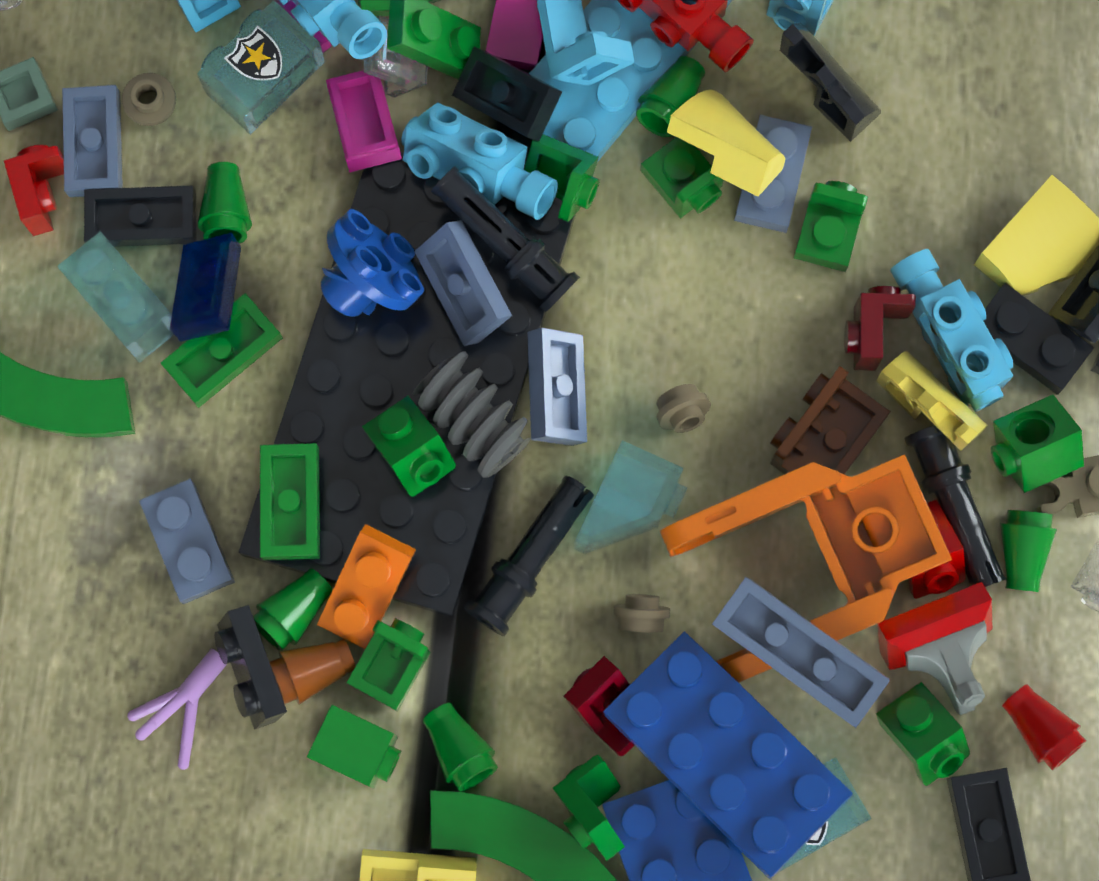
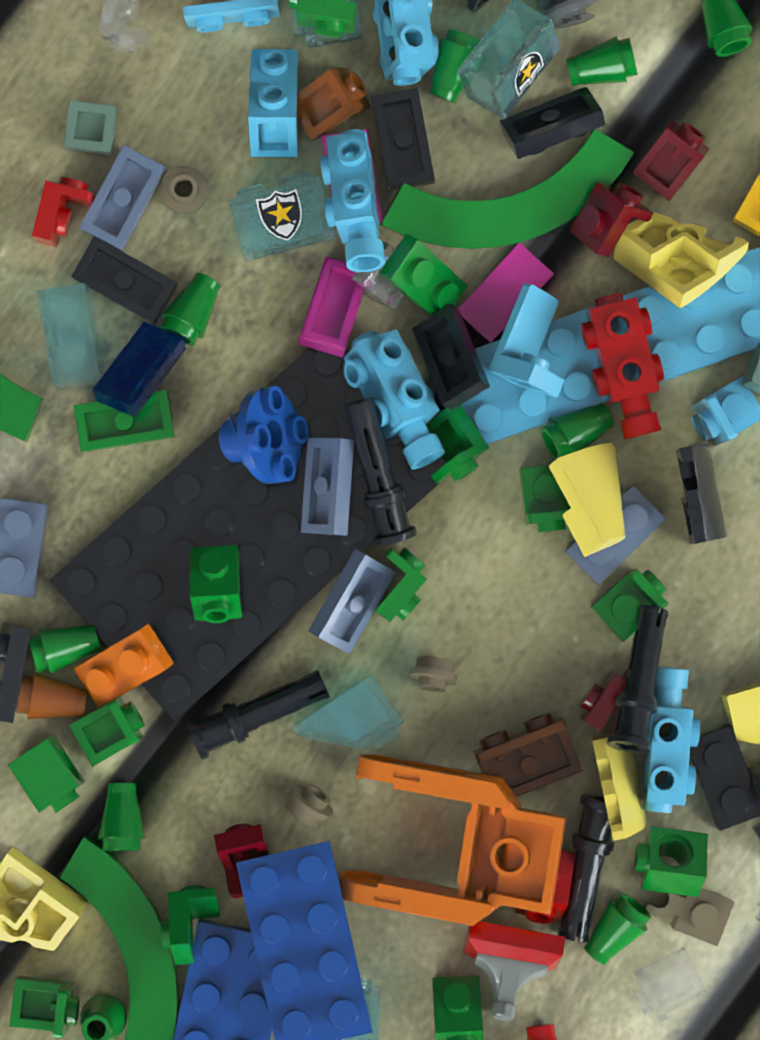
camera: 30 degrees right, 10 degrees up
(289, 502) = (104, 572): green plate -> none
(471, 415) = (274, 590): dark grey piece -> none
(604, 353) = (403, 598): none -> green bracket
(801, 652) = (399, 912): sand blue plate -> none
(899, 300) = (637, 700): none -> black pin

